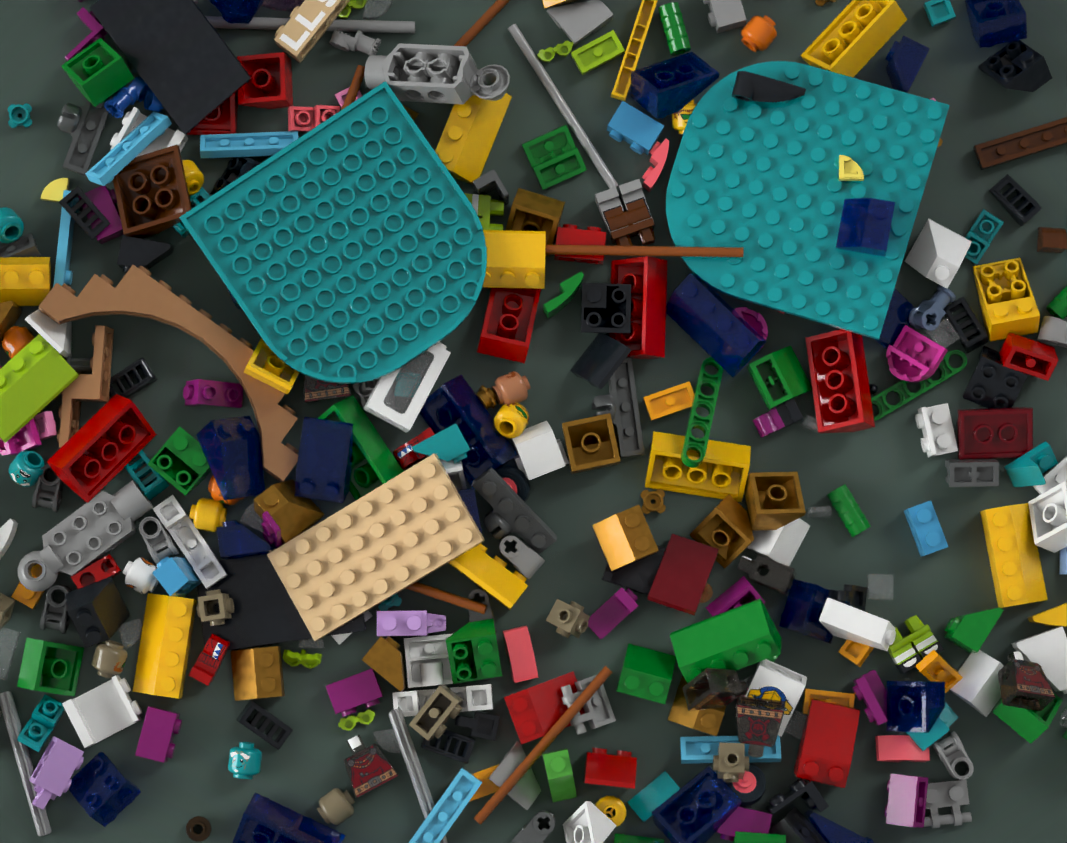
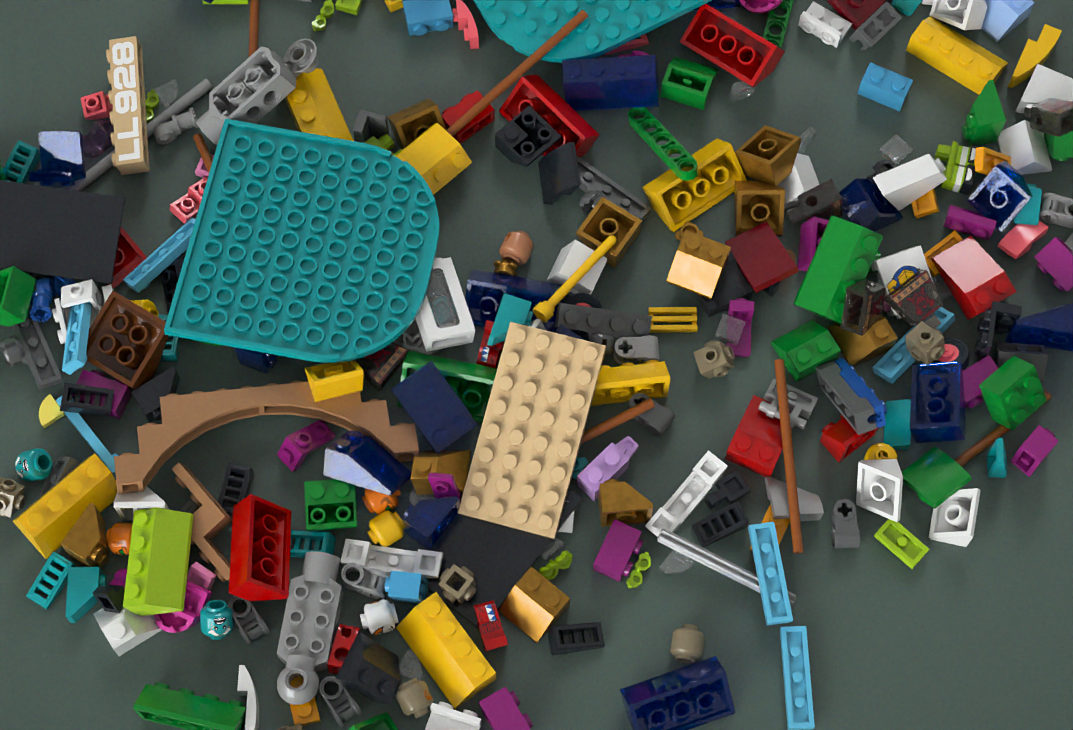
camera: 40 degrees left, 15 degrees down
(156, 123) = (81, 293): none -> white bracket
(244, 760) = (588, 674): teal head -> none
(269, 83) = (143, 201): red slope -> none
(367, 766) = (681, 594): torso -> none
(427, 661) = (651, 476): white plate -> none
(436, 712) = (691, 504): dark tan brick -> none
(474, 652) = (676, 437): green slope -> none
(476, 464) = (545, 309): none -> yellow piece
(509, 323) = (470, 208): red slope -> none
(511, 420) = (538, 266): yellow head -> none
(520, 654) = (704, 413): coral slope -> none
(554, 157) = (390, 80): green slope -> none
(559, 775) = (819, 465): bright green slope -> none
(562, 106) = (364, 45): light grey piece -> none
(564, 534) = (673, 319): none -> yellow tile
(568, 291) = (489, 154): green slope -> none
(604, 606) = (730, 329): none -> clear tile
(628, 223) = (476, 70): hips -> none
(632, 746) = (851, 396): none -> dark grey piece
(669, 401) = (632, 161): light orange plate -> none
(778, 418) = (716, 106): leg -> none
(848, 510) = (823, 121): green axle -> none

